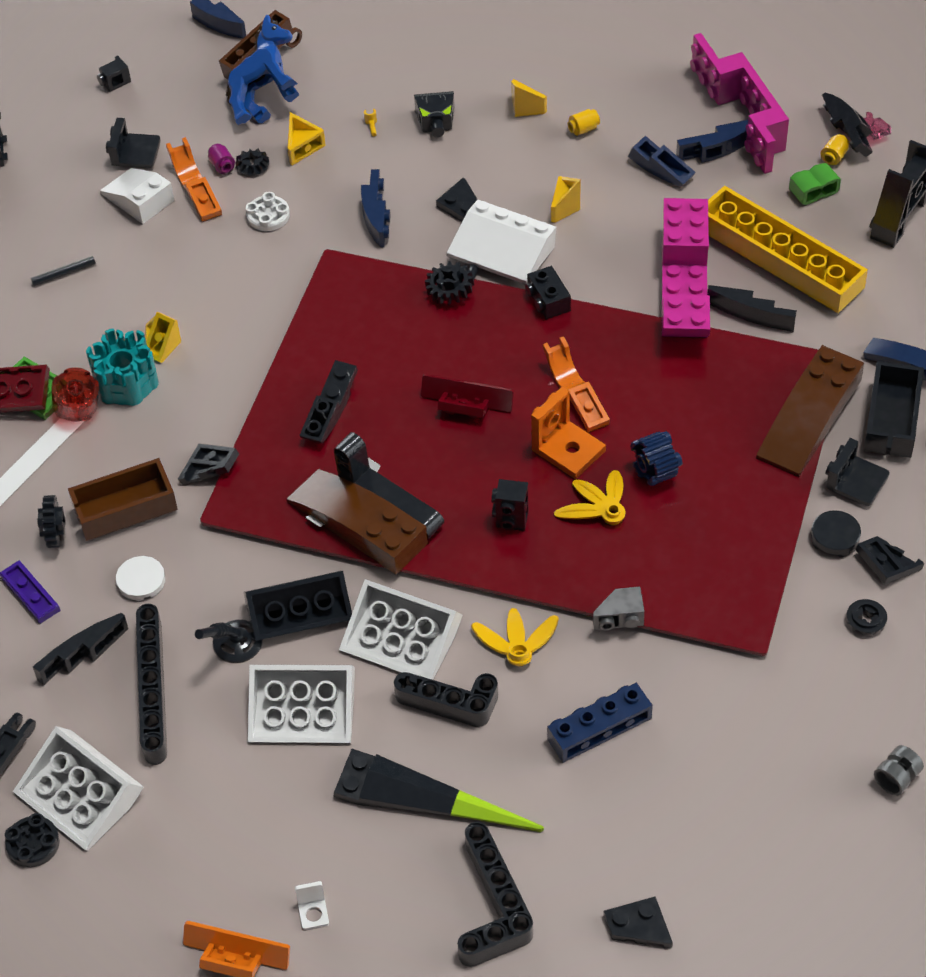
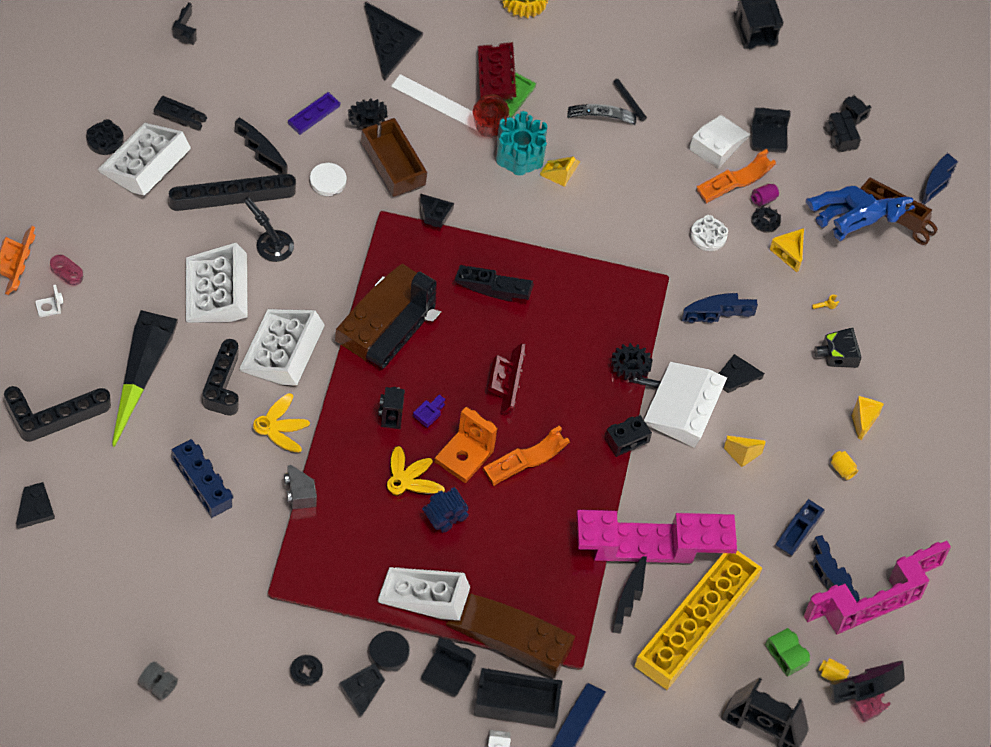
camera: 75 degrees right, 5 degrees up
(77, 300) = (602, 110): none -> sticker
(142, 86) = (843, 131): none -> black brick
(255, 885) = (67, 271): none -> clear pink plate
(298, 605) = (301, 275): black slope -> none
(506, 472) = (429, 412): none -> dark purple plate
(763, 487) = (426, 592): none -> white slope

